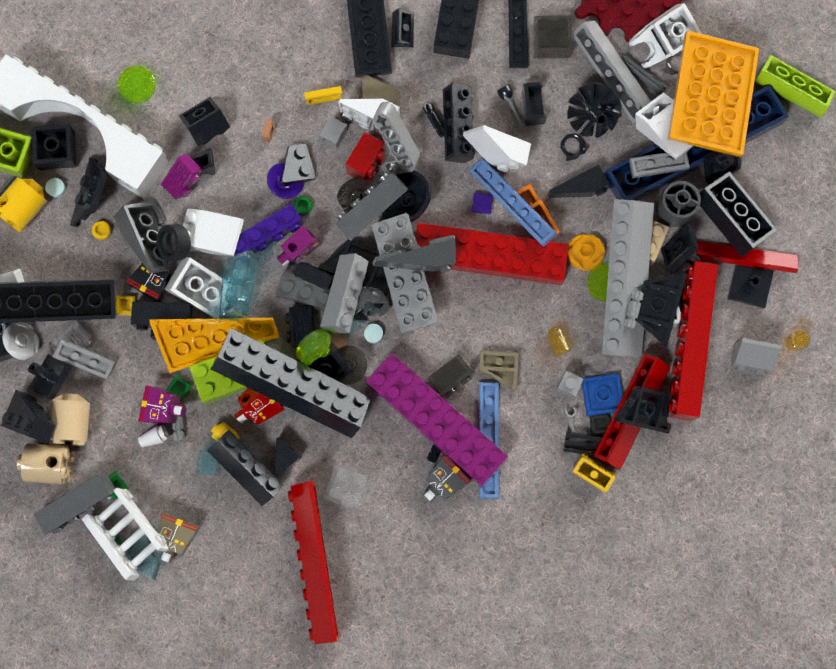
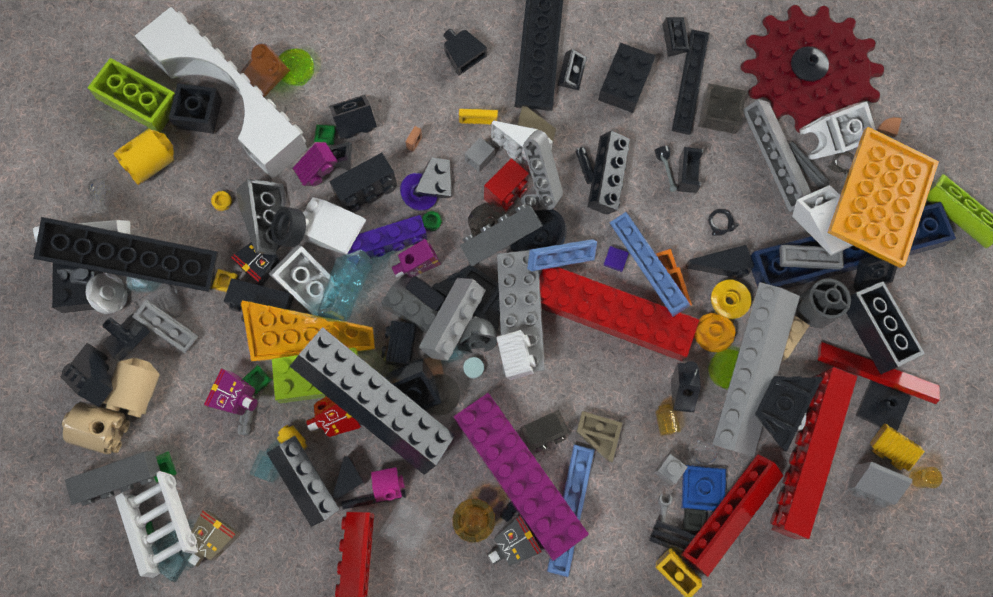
camera: 10 degrees right, 5 degrees down
(46, 327) = (138, 285): none -> clear light blue slope
(55, 187) = (187, 149): light aqua tile -> none
(90, 192) = (219, 160): black wing -> none
(108, 93) = (264, 68): none -> dark orange slope
(154, 436) = (217, 425): white cone -> none
(182, 145) = (325, 133): none -> green tile
(232, 185) = (364, 183): none -> black brick
(294, 32) = (463, 50): none -> black torso
(311, 470) = (365, 501): none -> black bar
(313, 346) = (406, 367): clear neon green tile -> none
(320, 454) = (387, 484): none -> dark pink brick
(404, 468) = (473, 520): none -> clear yellow cone
(409, 313) = (515, 354): none -> white brick
(431, 212) = (561, 255): none -> medium blue tile
(435, 256) = (554, 300): dark grey wedge -> none
(499, 148) = (645, 204): white slope -> none
(565, 300) = (685, 377): none -> black torso
(596, 209) = (737, 292): none -> yellow dish
(601, 107) = (757, 183): black piece -> none
(633, 309) = (757, 404): light grey axle -> none
(645, 409) = (749, 516): black wing -> none
(680, 249) = (817, 351): black tile -> none
(714, 18) = (890, 126): none -> nougat tile
(766, 320) = (896, 447): none -> yellow brick

